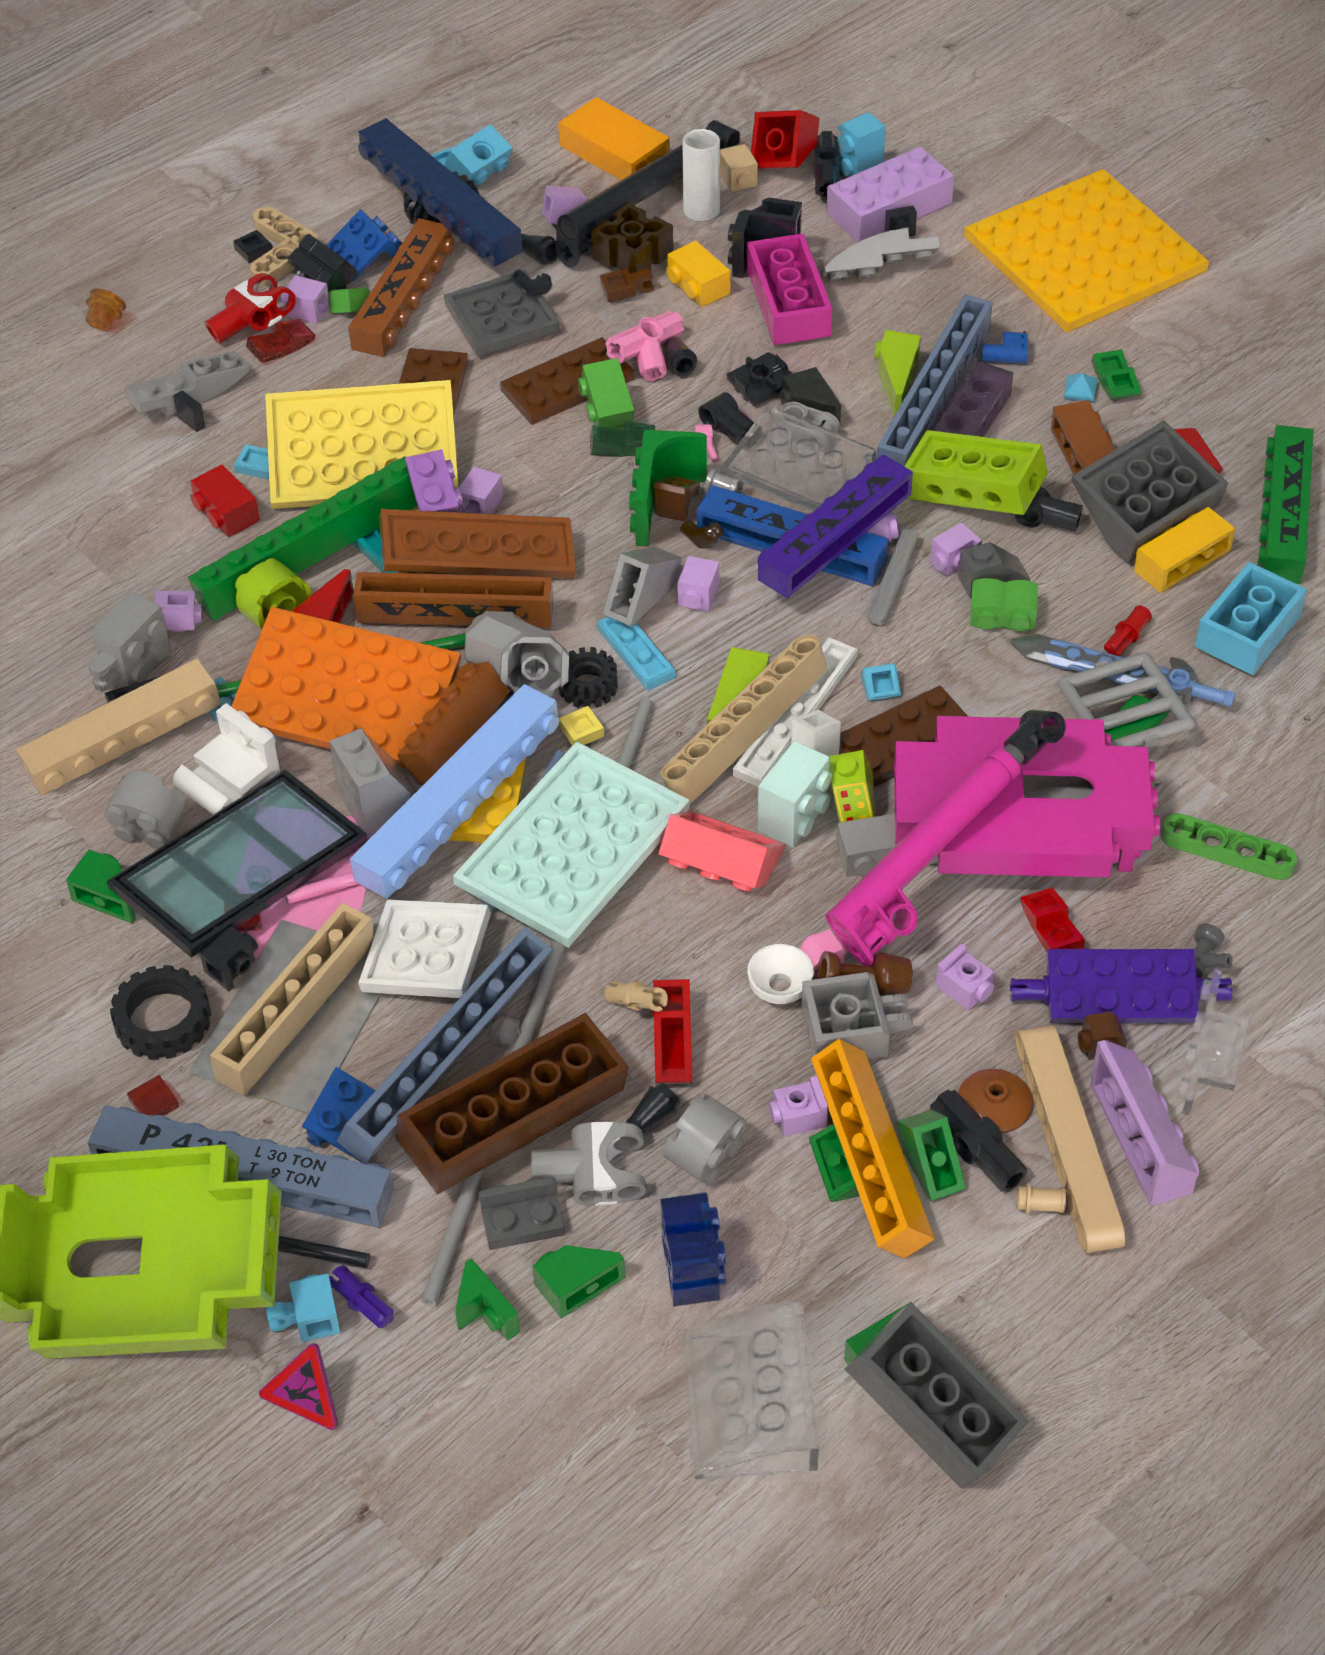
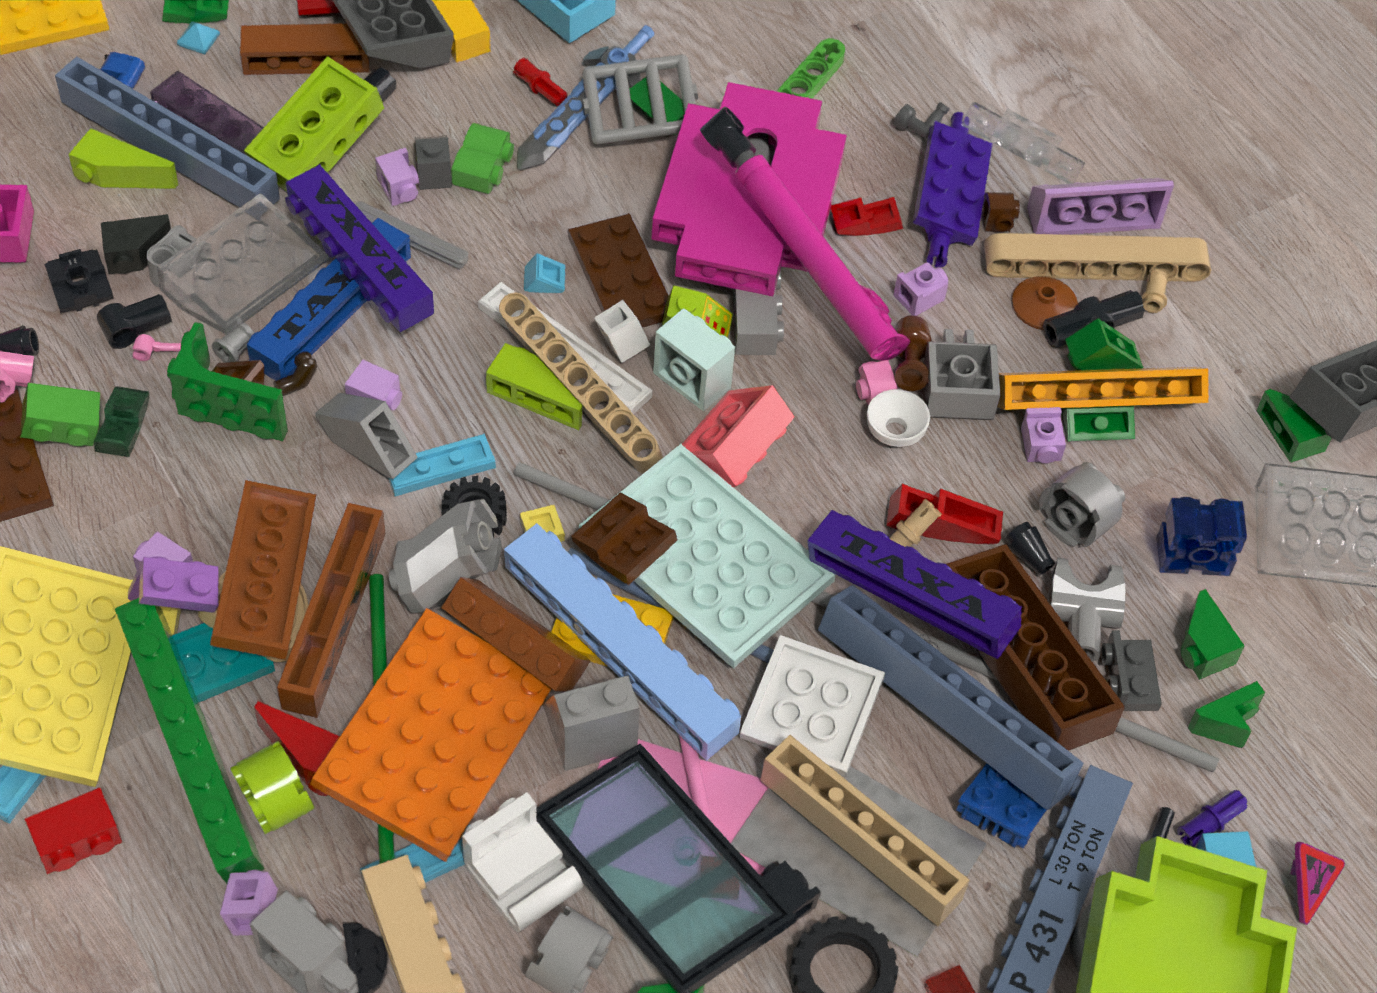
camera: 85 degrees left, 5 degrees up
(545, 983) = (915, 583): none -> dark purple brick
(564, 771) = (624, 538): none -> reddish brown slope

